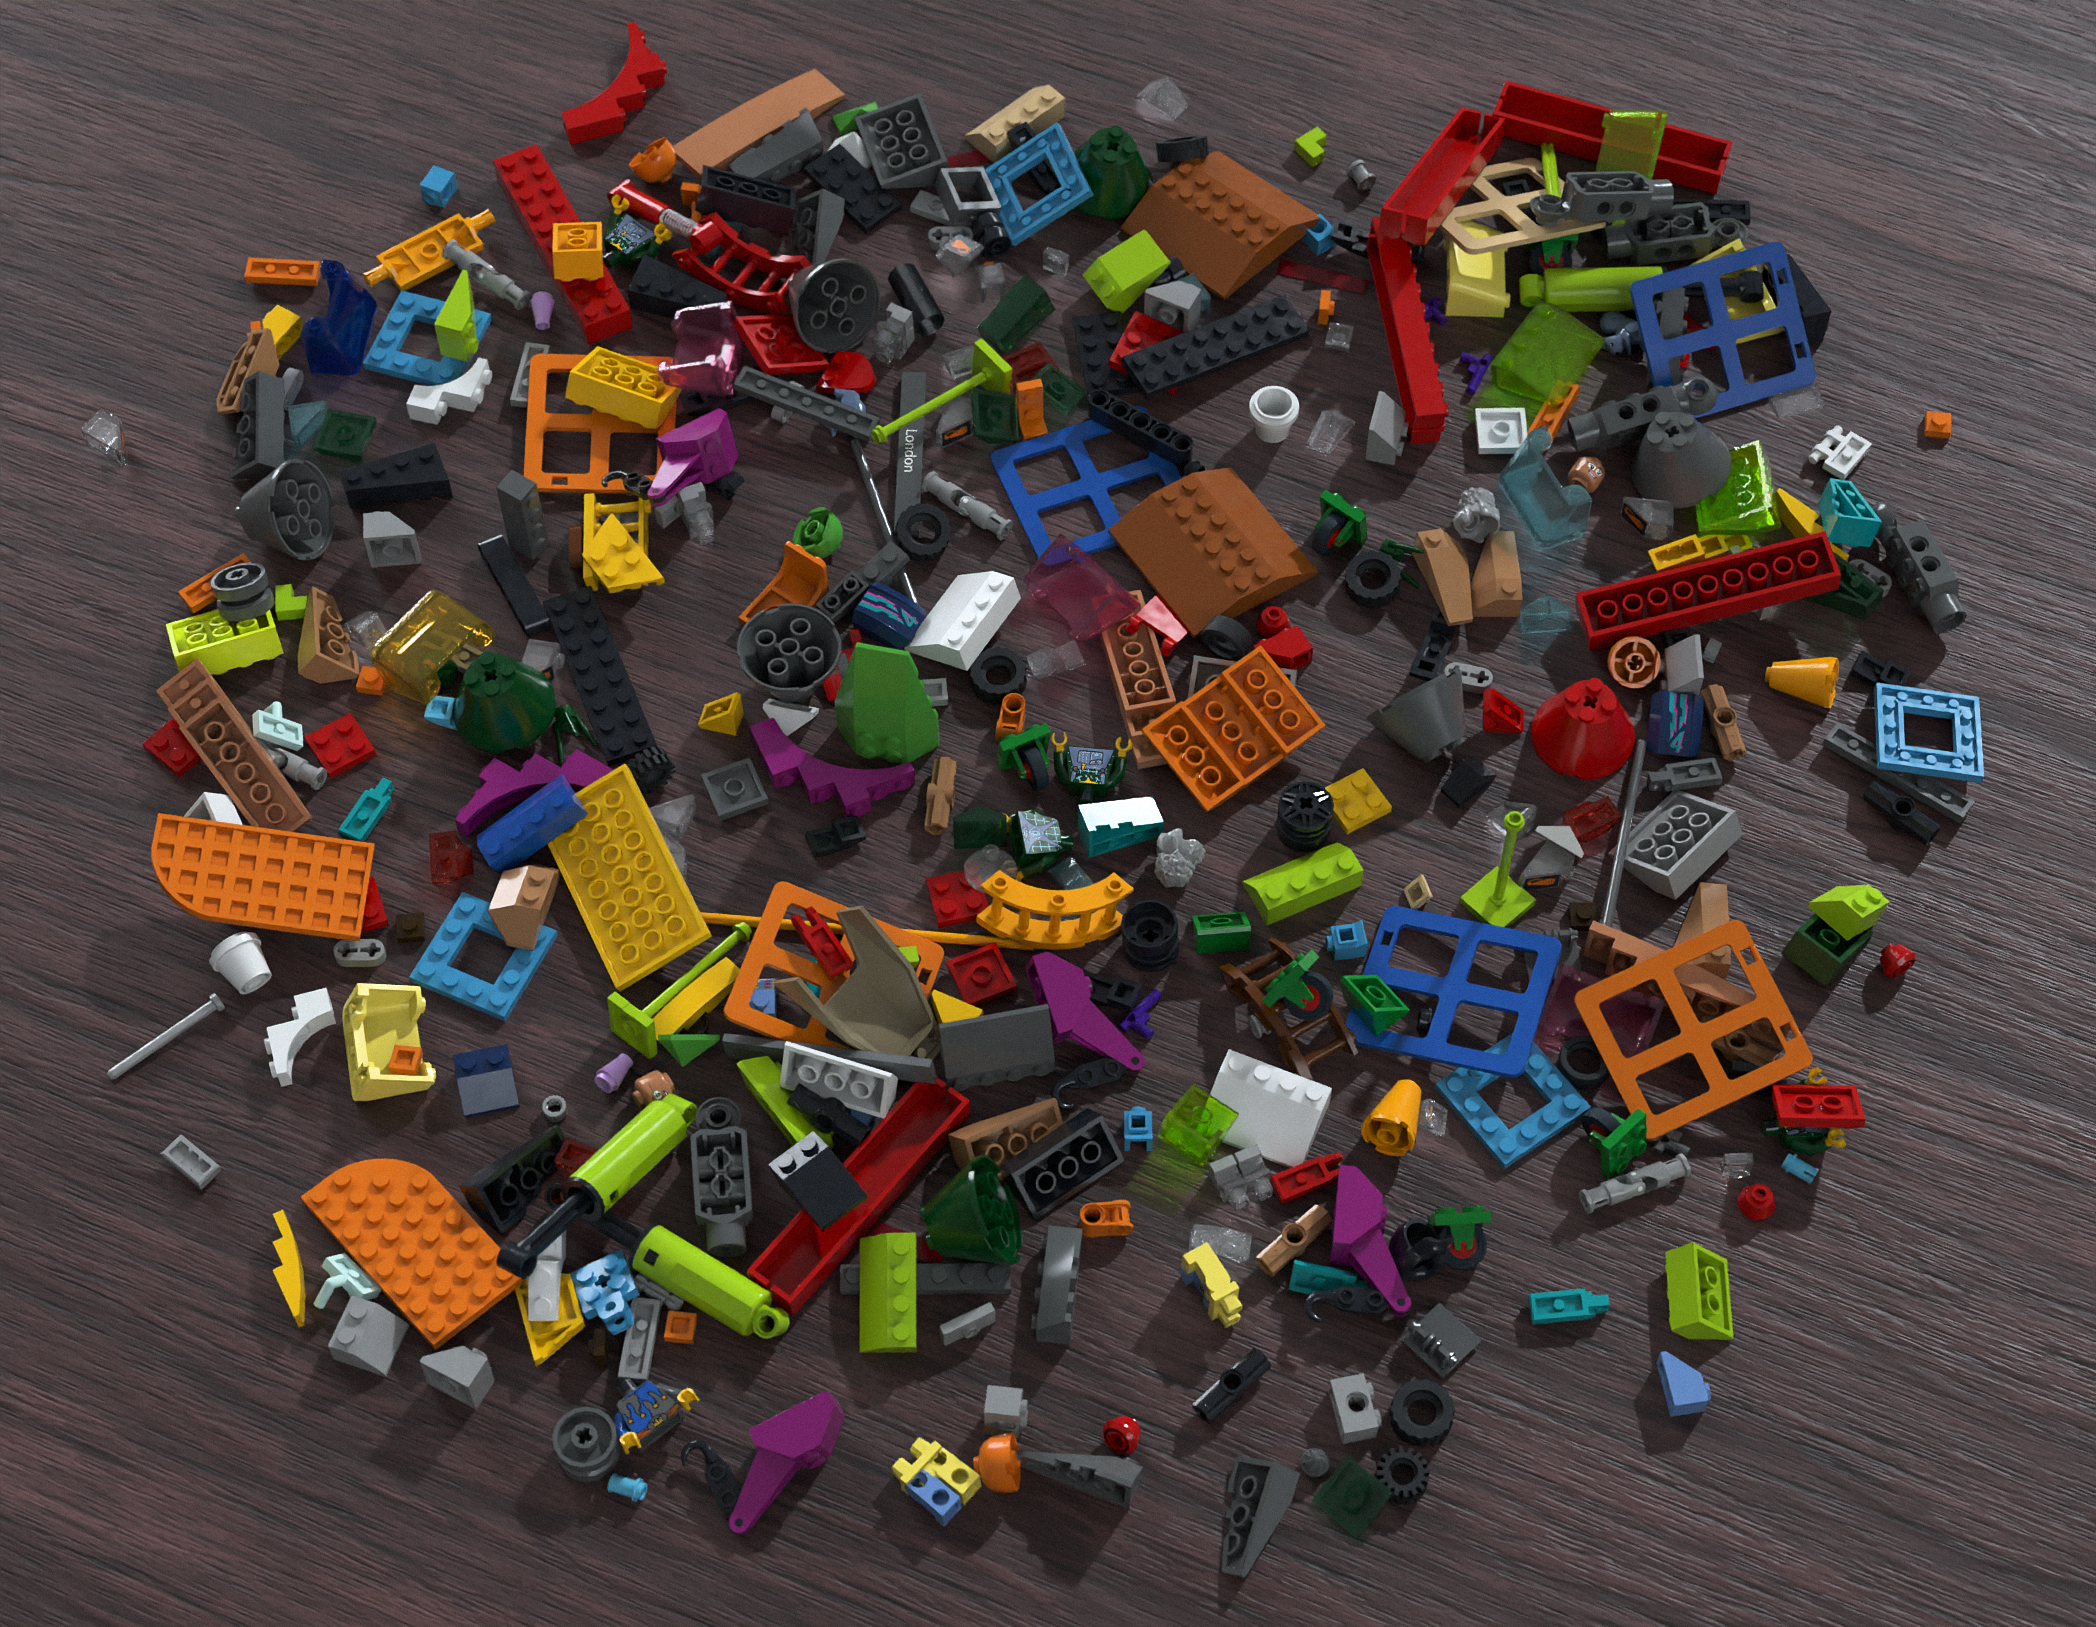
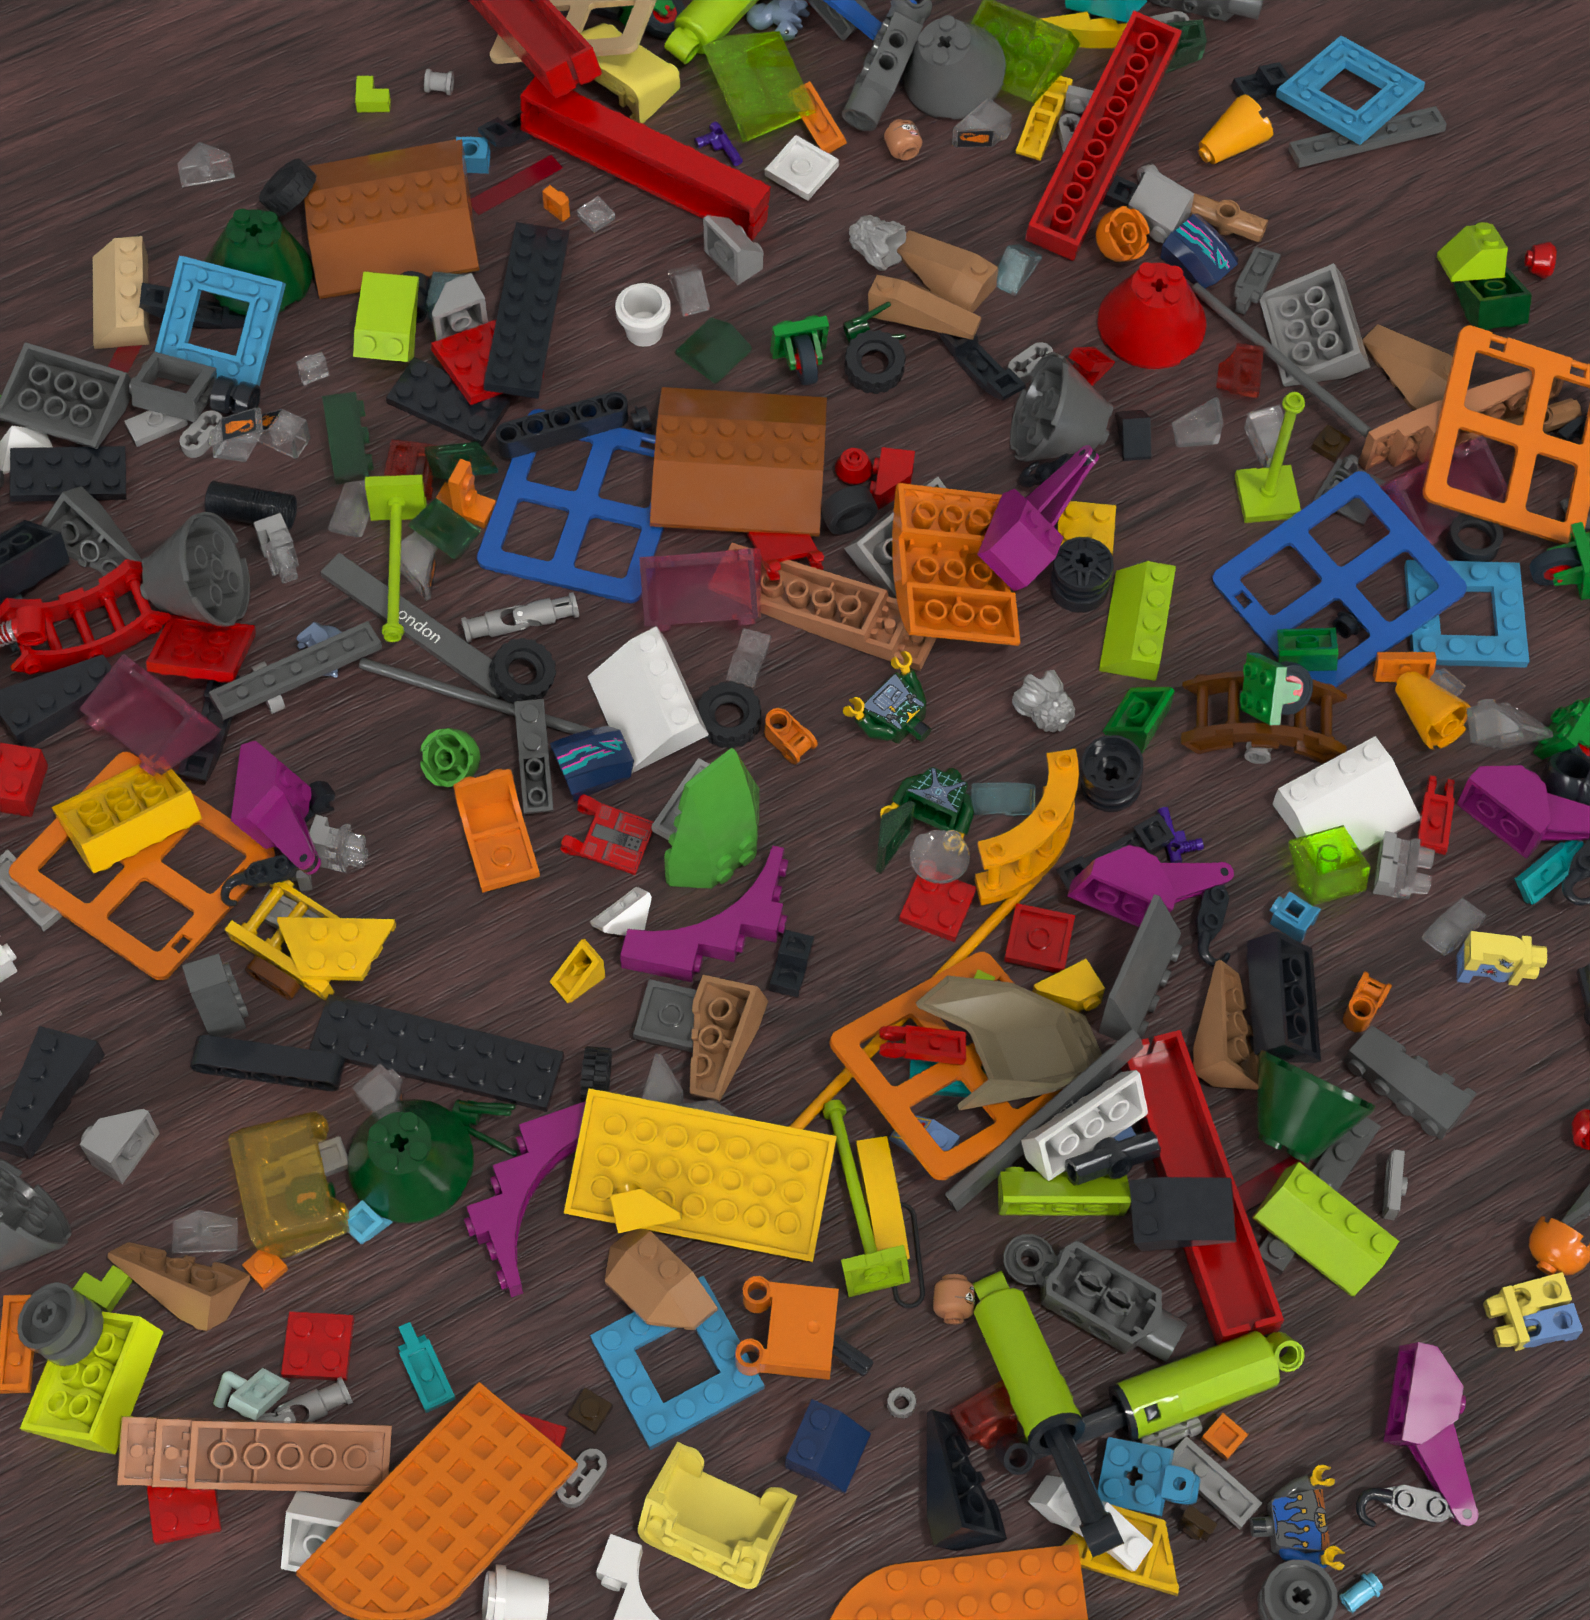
camera: 55 degrees left, 5 degrees up
(405, 1060) = (748, 1509): orange plate -> none
(449, 857) = (540, 1325): clear red slope -> none
(531, 825) = (570, 1221): blue slope -> none
(550, 1005) = (799, 1332): none -> orange piece
(567, 855) = (640, 1209): none -> yellow slope
(613, 1073) = (905, 1325): lavender cone -> none
(687, 1046) = (926, 1233): bright green slope -> none
(748, 824) = (724, 1027): none -> medium nougat wedge
(789, 651) = (584, 860): dark grey cone -> none
(847, 372) = (281, 617): red slope -> none
(940, 796) = (821, 846): medium nougat piece -> none
(1005, 1411) = (1512, 1209): light grey brick -> none
(1027, 755) = (846, 746): green plate -> none
(1118, 824) = (971, 723): teal wedge -> none
(1294, 479) = (714, 349): none -> clear green slope
(1301, 753) = (1022, 530): none -> magenta slope
(1305, 1229) = (1490, 852): medium nougat piece -> none
(1350, 948) = (1223, 639): dark azure window -> none
(1413, 1068) = (1392, 665): none -> orange plate
(1417, 892) = (1218, 544): tan slope -> none
(1418, 1169) = (1503, 725): none -> clear slope
(1545, 508) = (897, 181): clear light blue windscreen -> none
(1562, 836) = (1253, 400): white slope -> none
(1891, 804) = (1407, 160): black piece -> none

